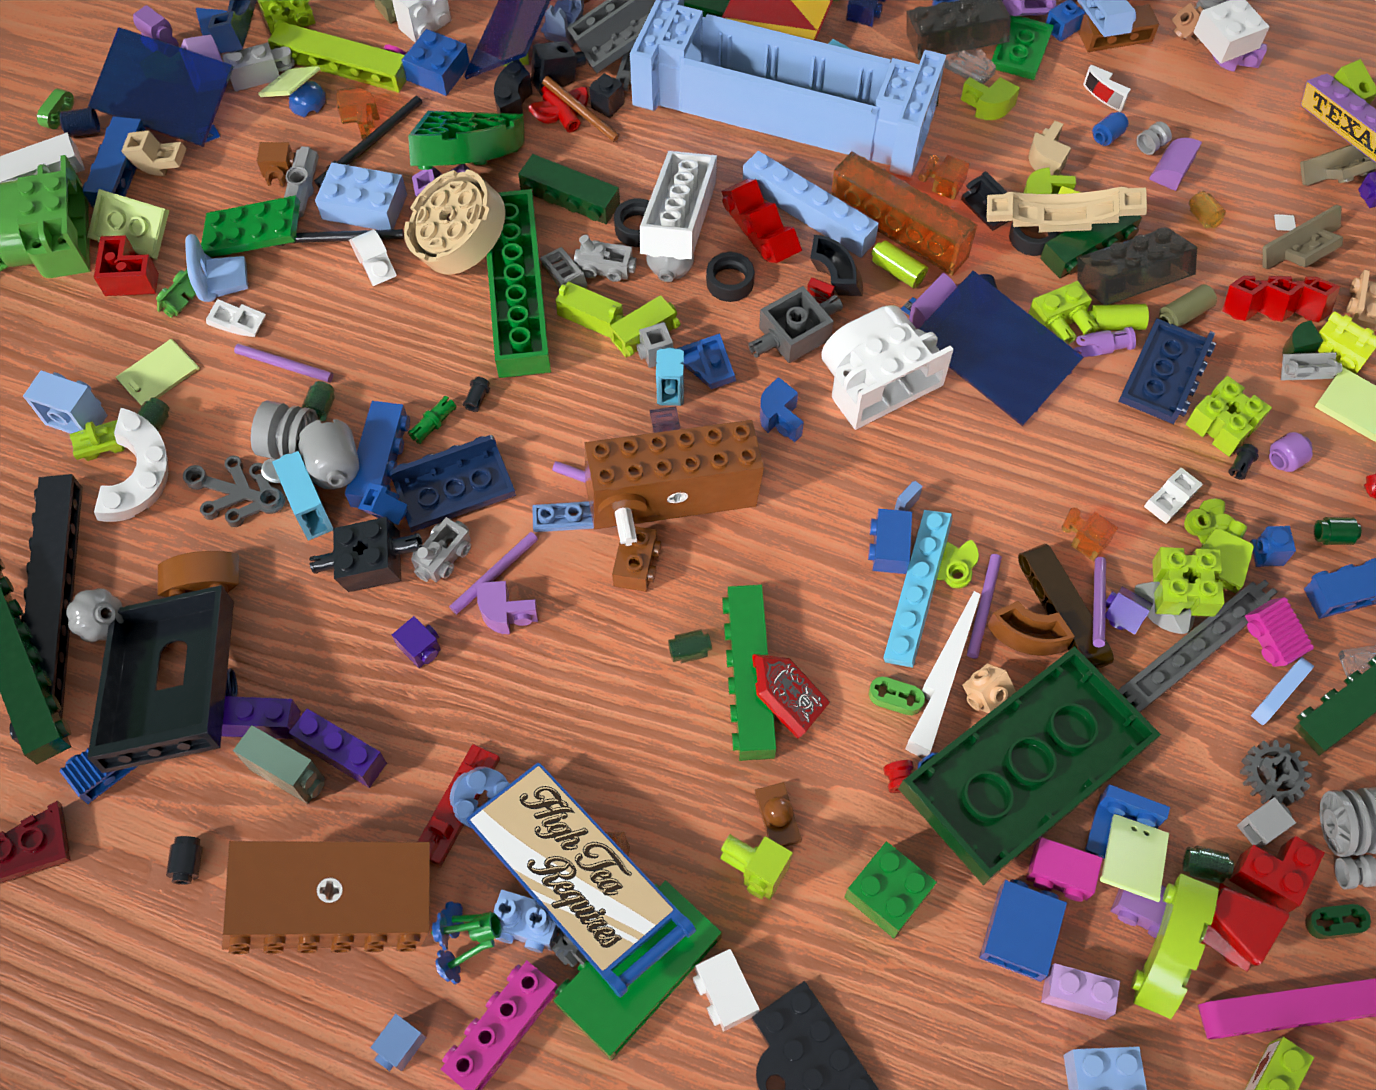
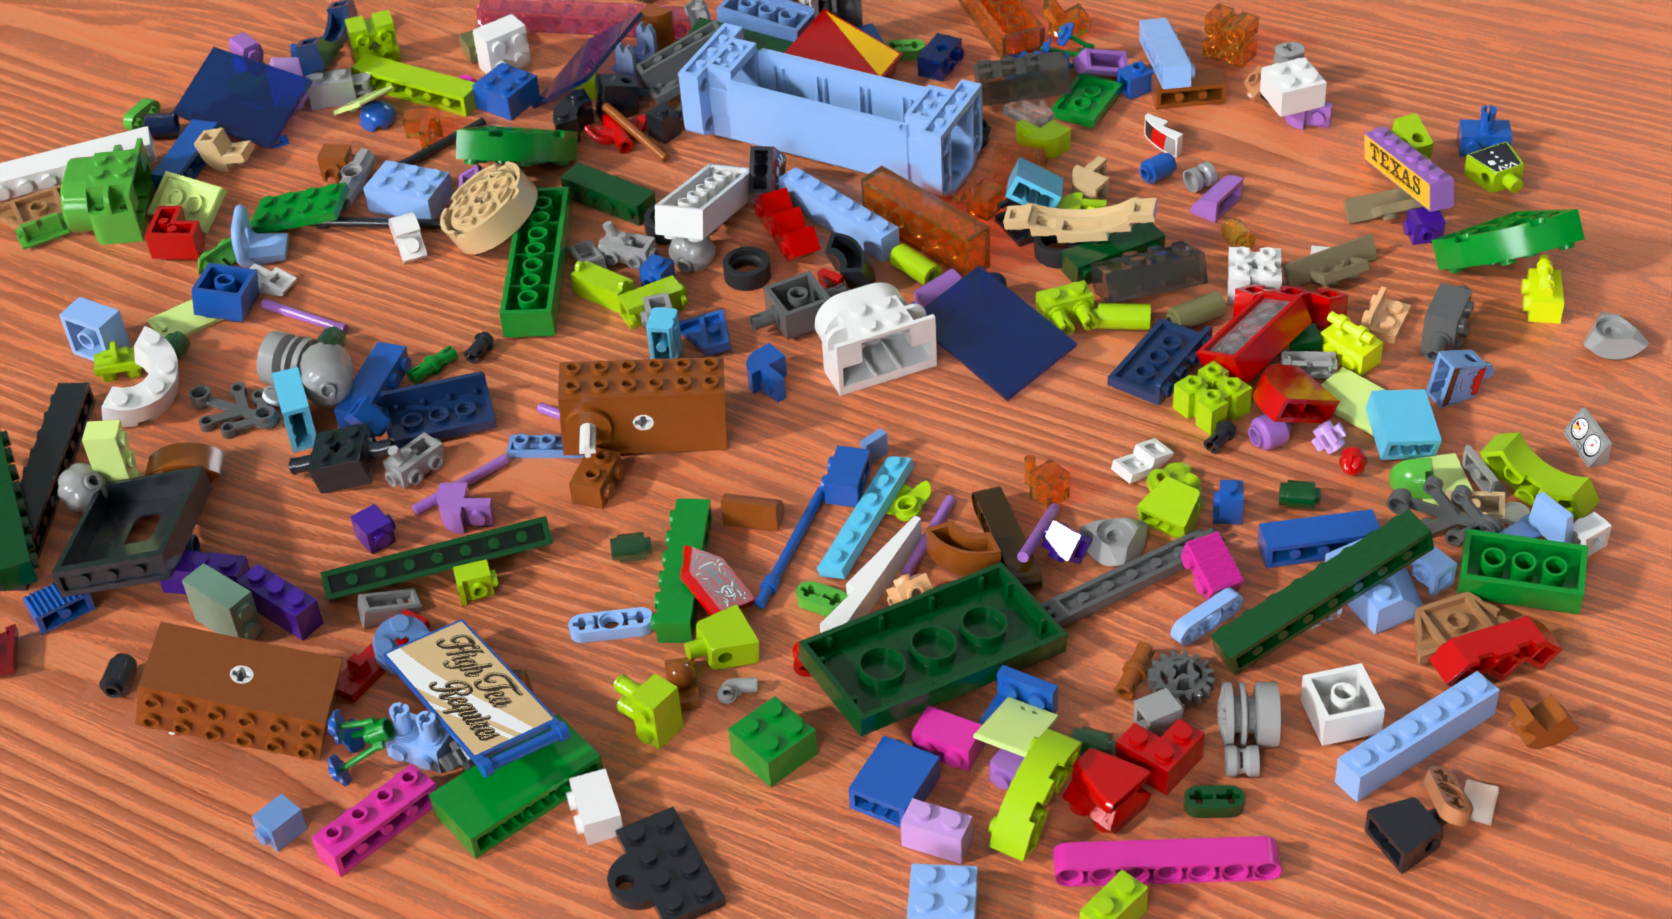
camera: 10 degrees right, 20 degrees down
(118, 578) = (109, 450): none -> yellowish green brick
(194, 342) = (225, 292): none -> blue brick
(448, 752) = (378, 606): none -> light grey slope
(492, 680) = (436, 558): none -> dark green brick
(538, 703) = (475, 581): none -> lime brick
(642, 290) = (655, 269): none -> blue brick
(695, 734) = (591, 634): none -> light blue beam
(729, 158) = (765, 168): none -> black torso
(803, 590) = (752, 512): none -> dark orange brick
(812, 762) = (724, 640): none -> lime torso
(833, 816) = (735, 687): none -> light grey arm
(841, 679) = (772, 581): none -> blue bar
(973, 137) = (1007, 156): none -> clear orange bracket
(1002, 164) = (1034, 185): none -> medium azure brick
(1106, 342) = (1105, 335): medium lavender piece -> none
(1187, 581) = (1123, 514): lime brick -> none
(1226, 764) = (1134, 671): none -> dark orange pin
(1233, 257) = (1253, 268): none -> white brick
(1261, 341) = (1256, 334): none -> red brick
(1309, 412) = (1293, 396): none -> red brick
(1351, 457) = (1329, 437): none -> lavender gear

